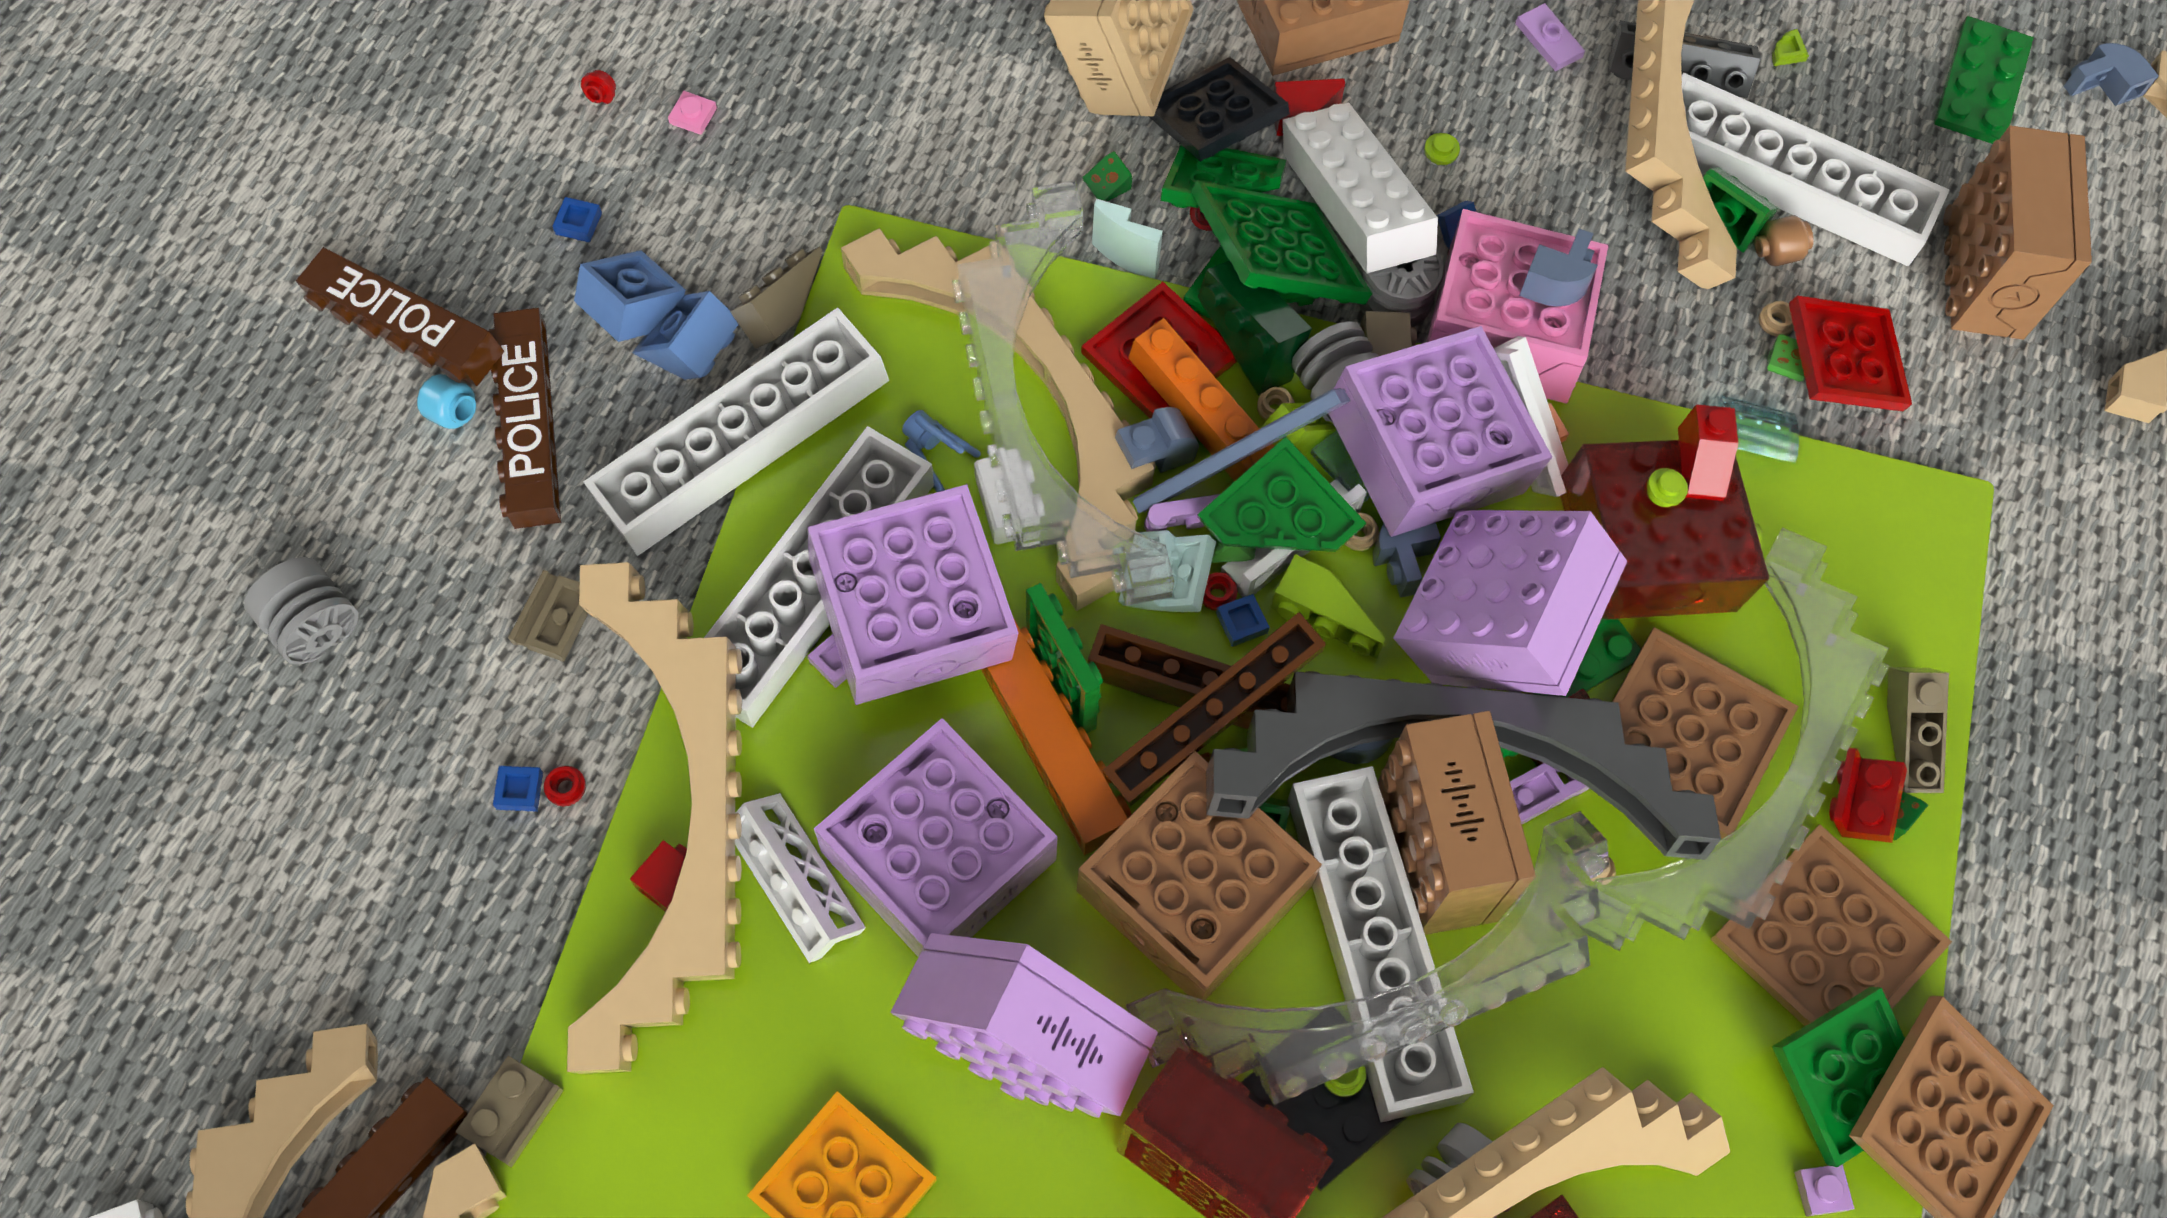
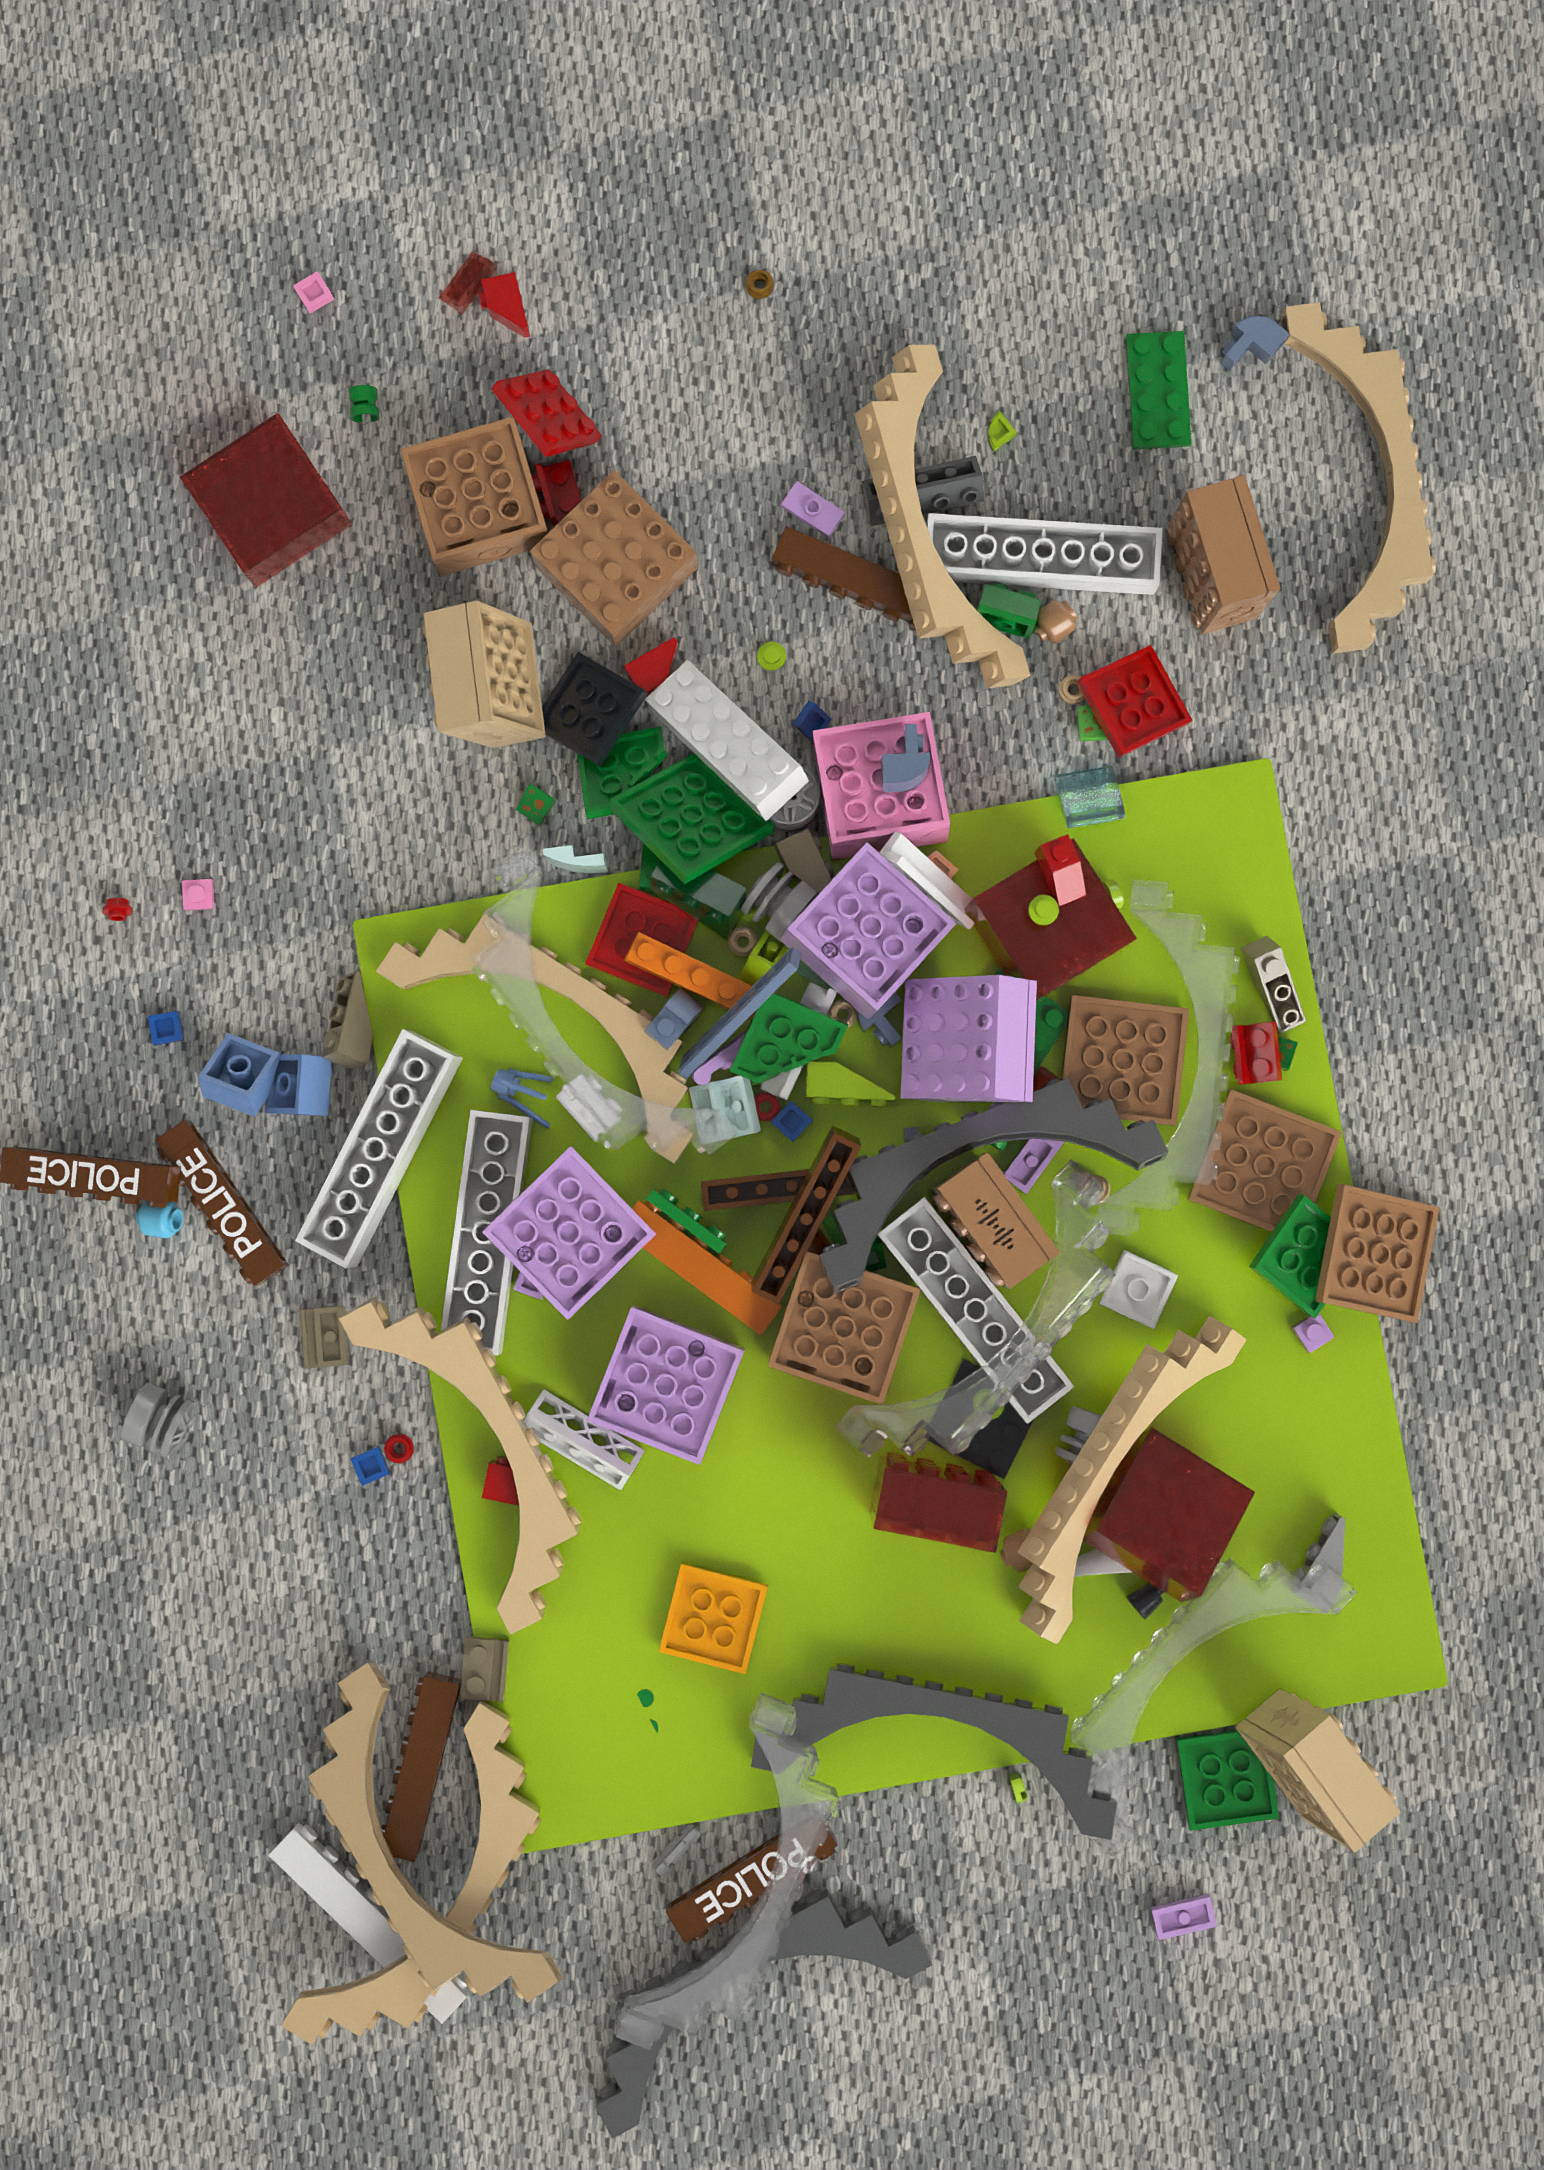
camera: 20 degrees left, 20 degrees up
(1024, 1023) = (781, 1488): lavender piece -> none
(1563, 107) = (842, 574): none -> reddish brown brick
(1603, 1020) = (1138, 1289): none -> white plate

